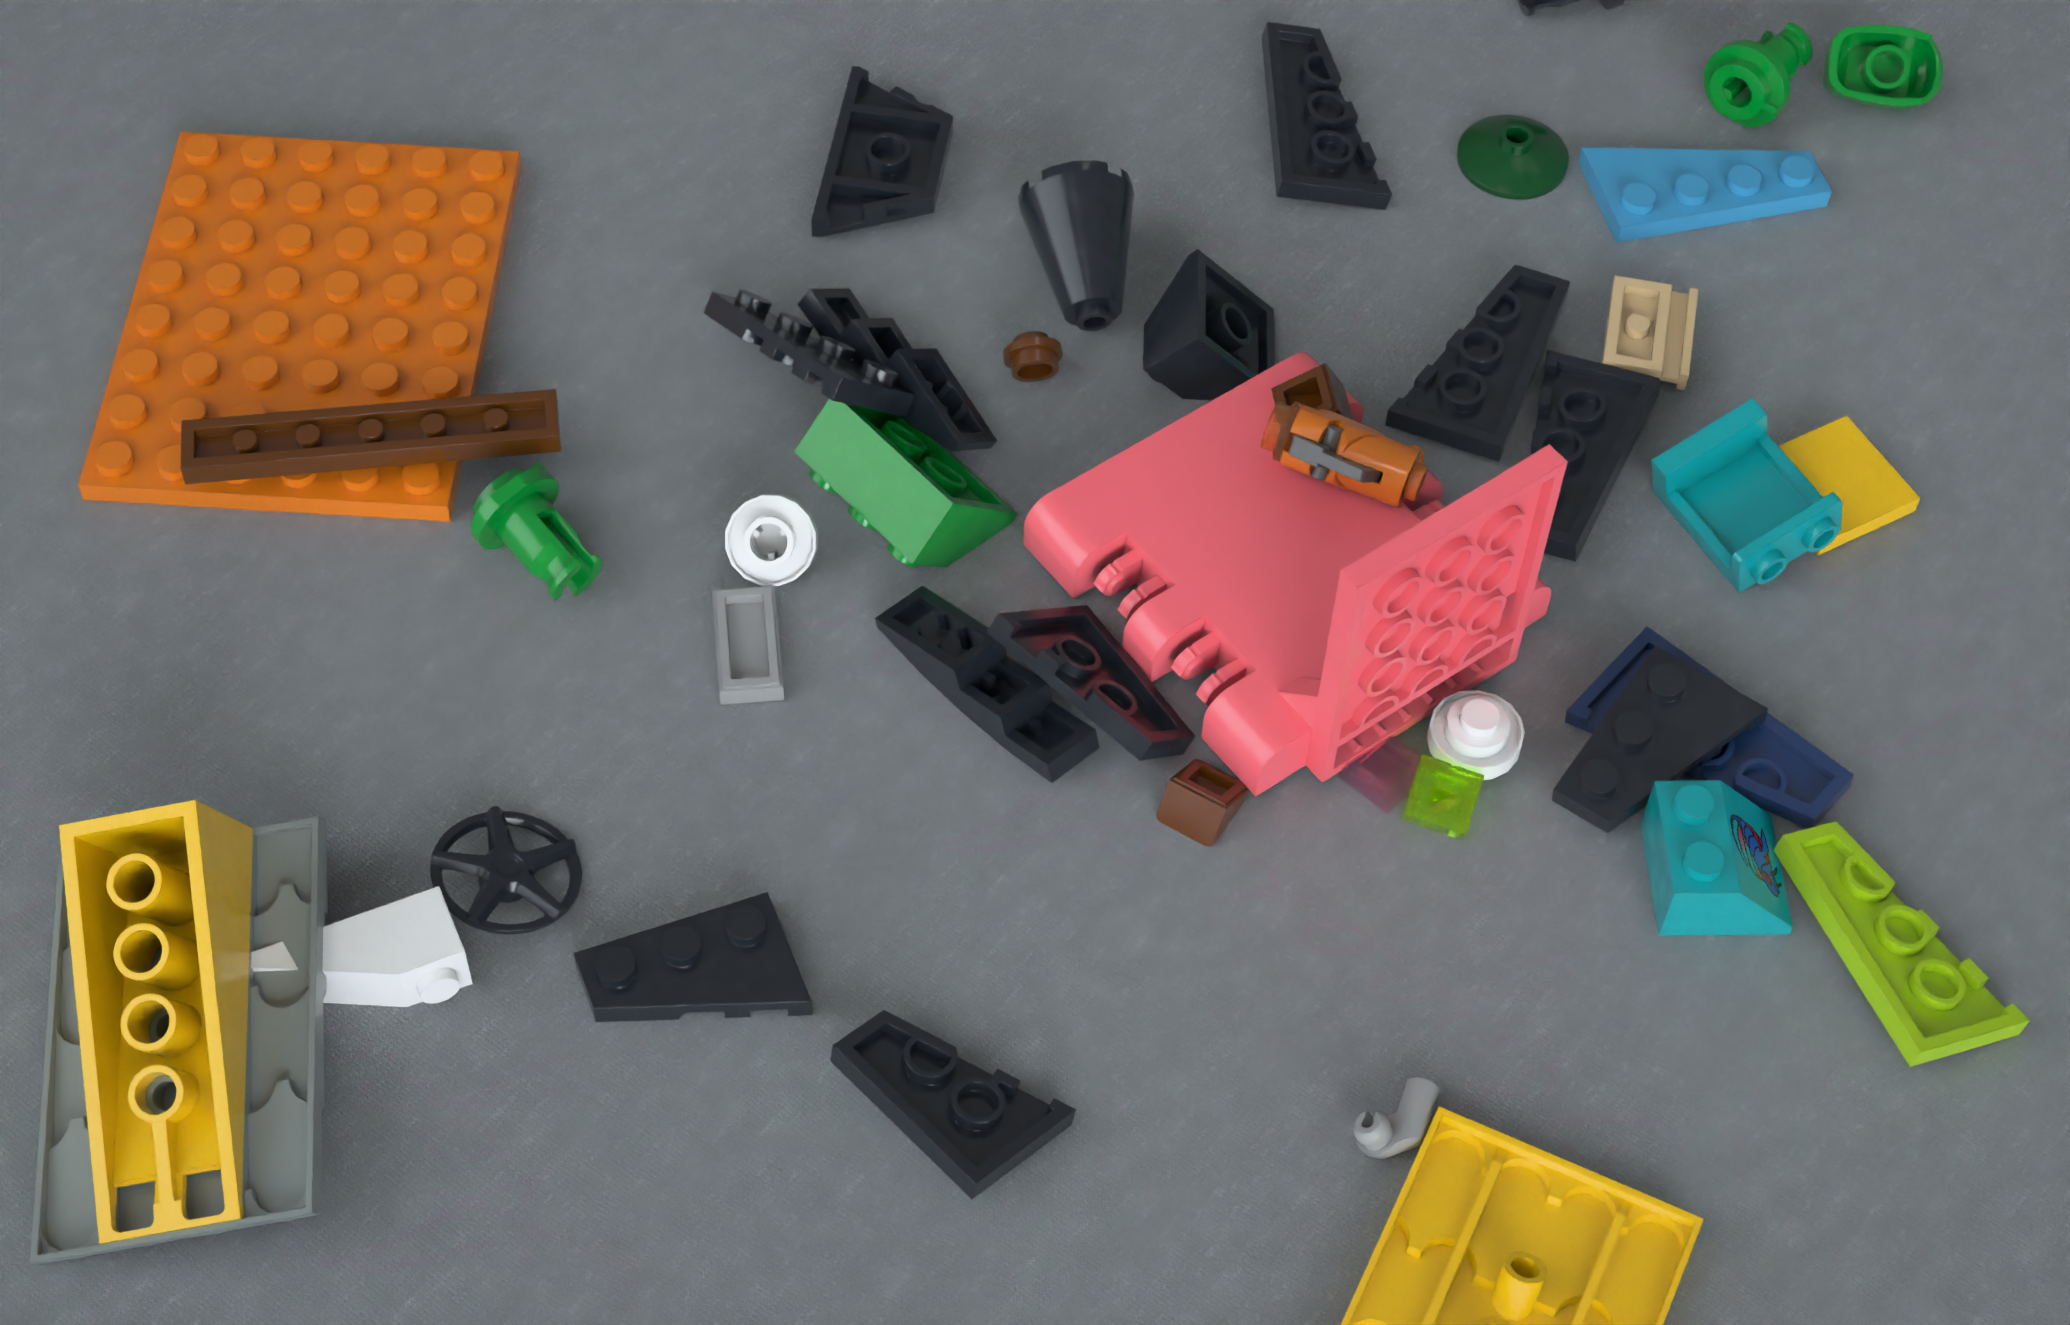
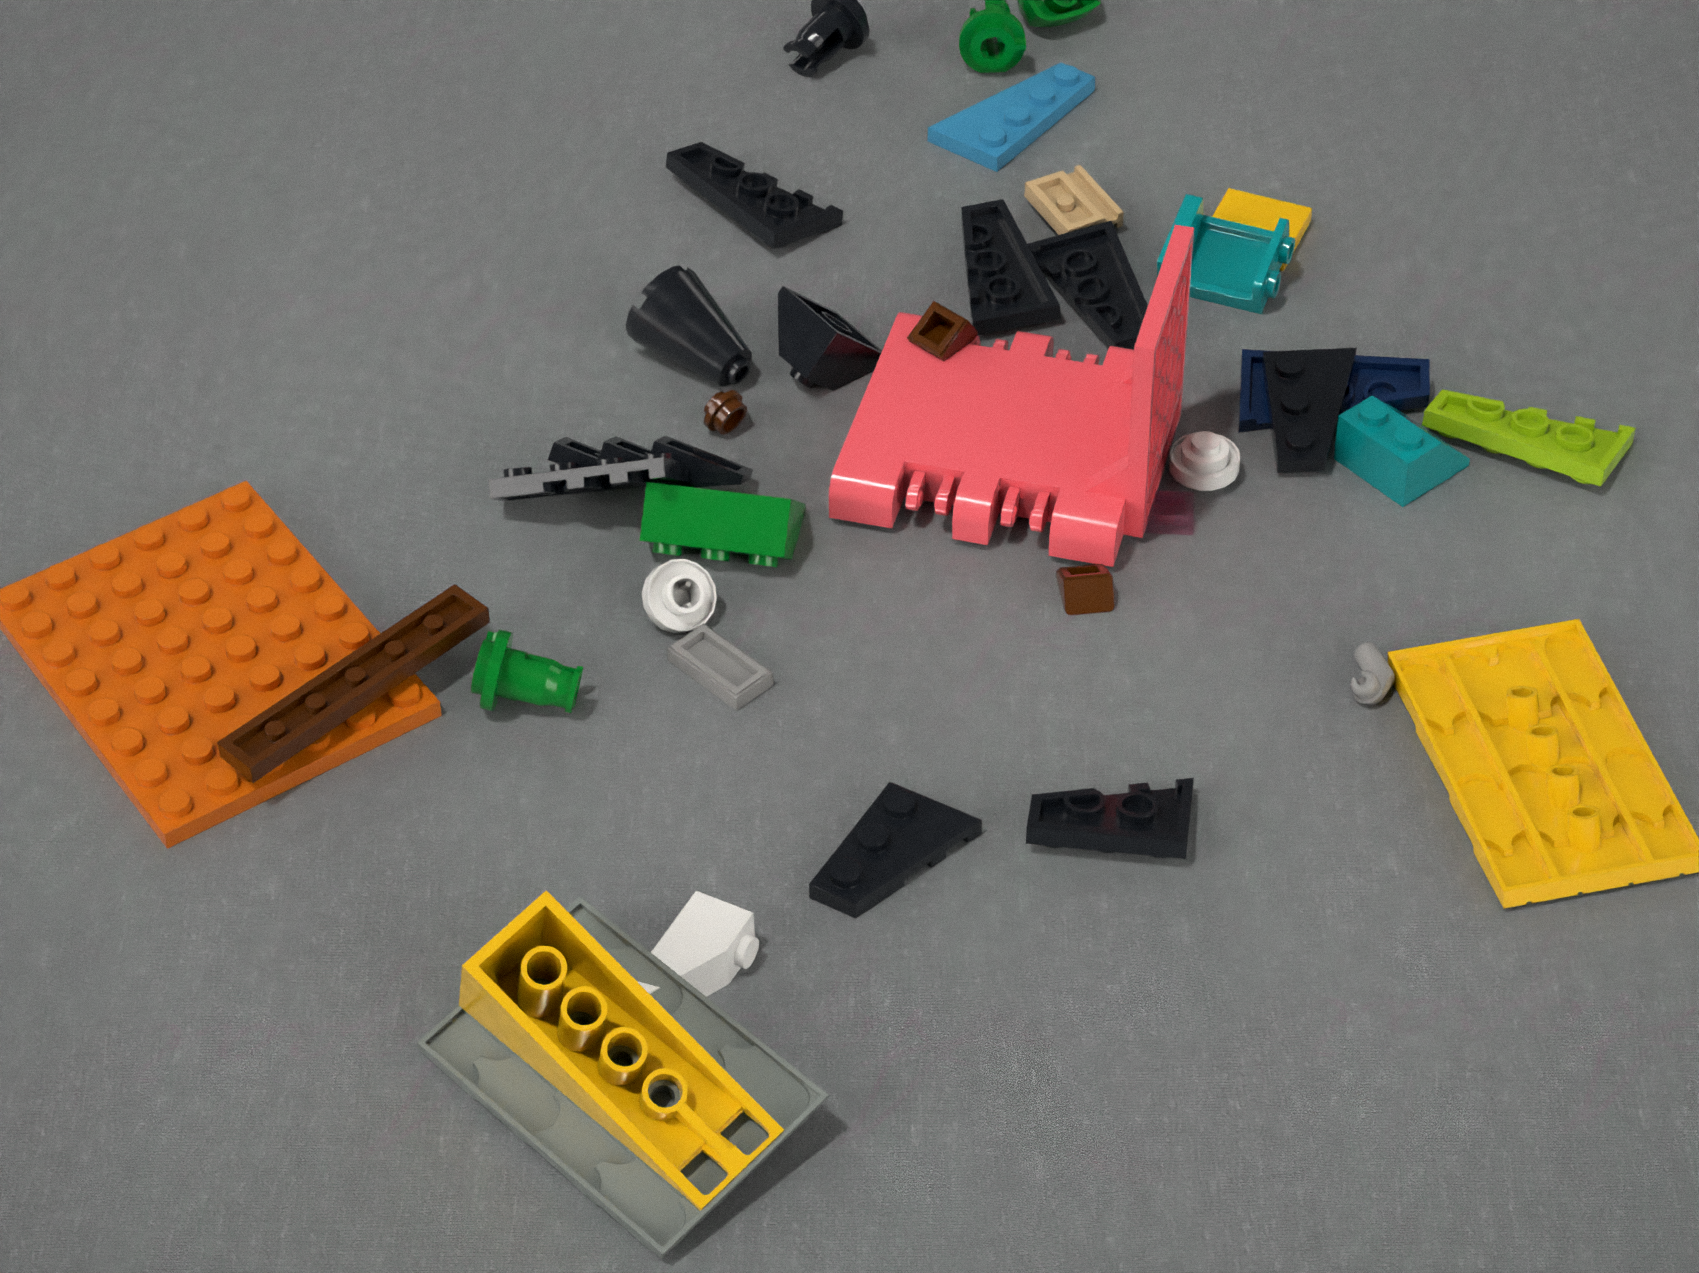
camera: 35 degrees left, 10 degrees down
(506, 872) = (714, 871): black wheel -> none
(881, 159) = (498, 356): black wing -> none
(986, 683) = (877, 598): black slope -> none
(1095, 675) = (963, 554): black wing -> none
(1344, 453) = (995, 342): orange piece -> none
(1442, 797) = (1219, 503): clear neon green tile -> none
(1512, 157) = (886, 157): dark green dish -> none

